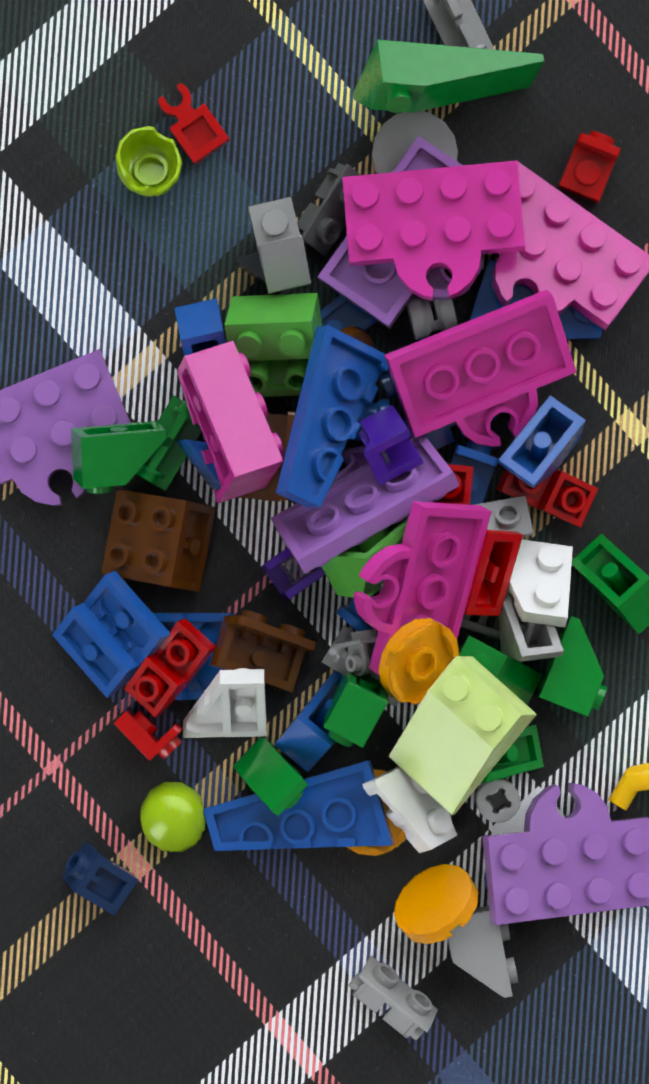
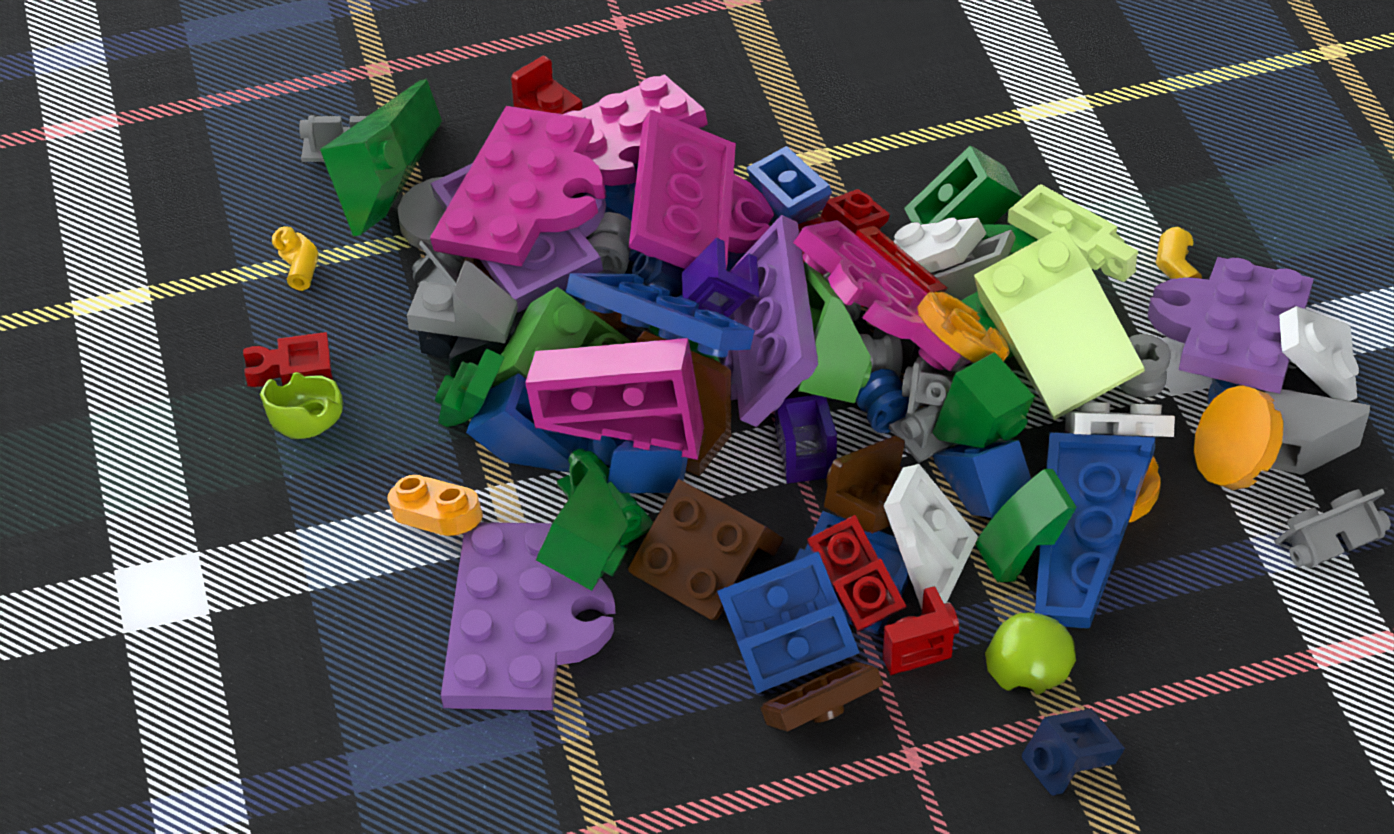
camera: 60 degrees left, 40 degrees down
(60, 685) = (821, 697): none -> reddish brown plate
(103, 317) = (434, 505): none -> light orange plate
(209, 291) = (466, 393): none -> green slope
(313, 61) = (299, 254): none -> yellow arm
(567, 937) = (1321, 350): none -> white wing
(589, 699) = (1097, 239): none -> yellowish green hinge

